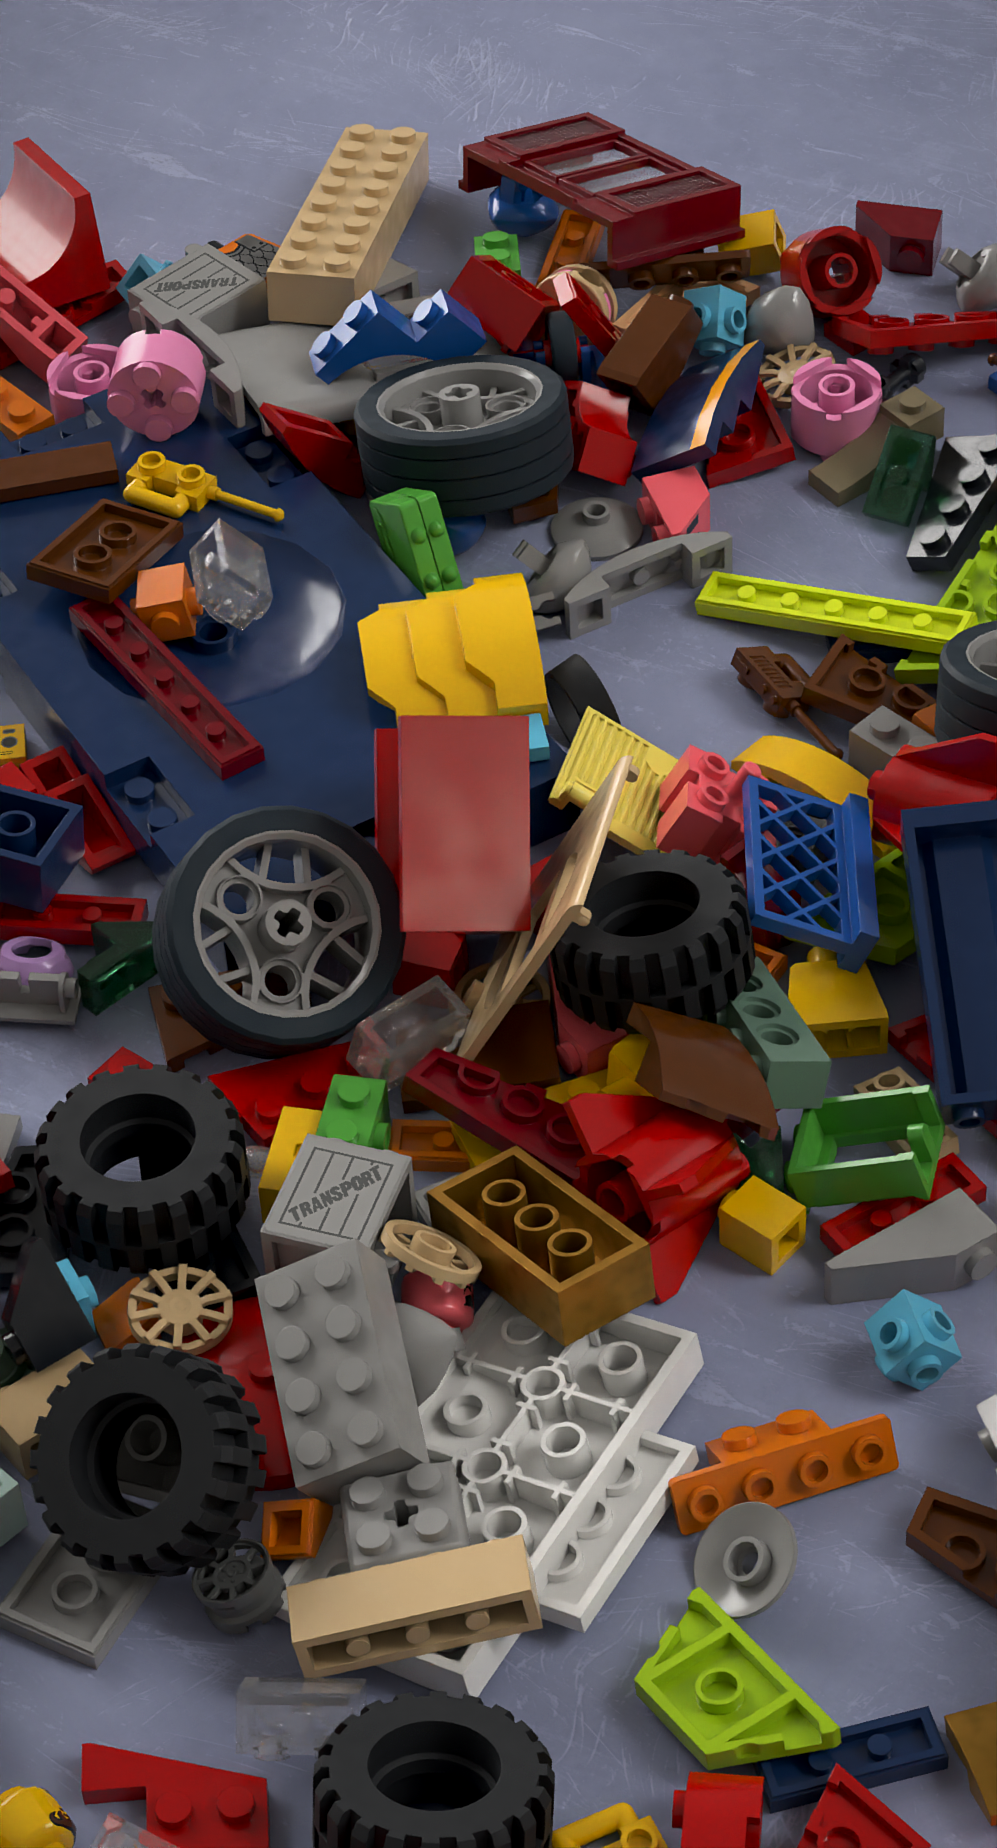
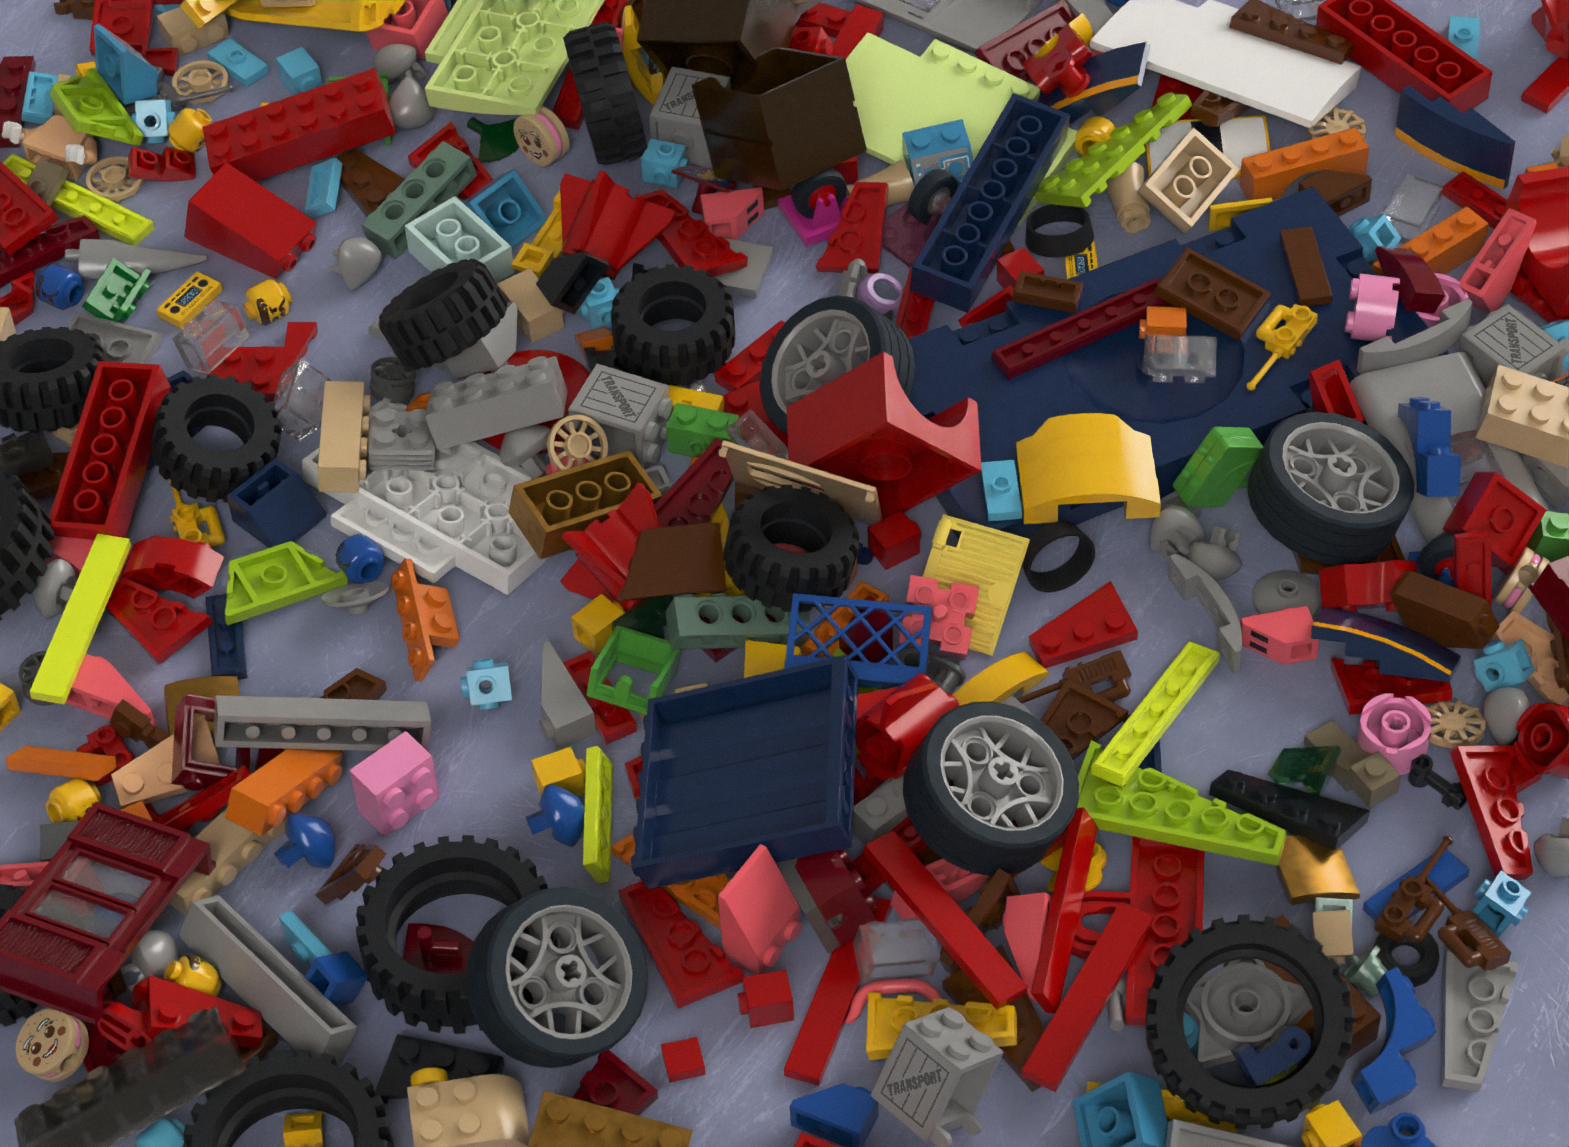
camera: 95 degrees right, 5 degrees up
(68, 375) = (1418, 283): none -> dark red slope
(98, 716) = (1048, 292): none -> reddish brown plate
(180, 1309) = (580, 350): tan wheel -> none
(570, 1710) = (275, 505): none -> dark blue slope
(662, 1570) = (360, 559): none -> blue head
(683, 702) = (1084, 629): none -> red wing

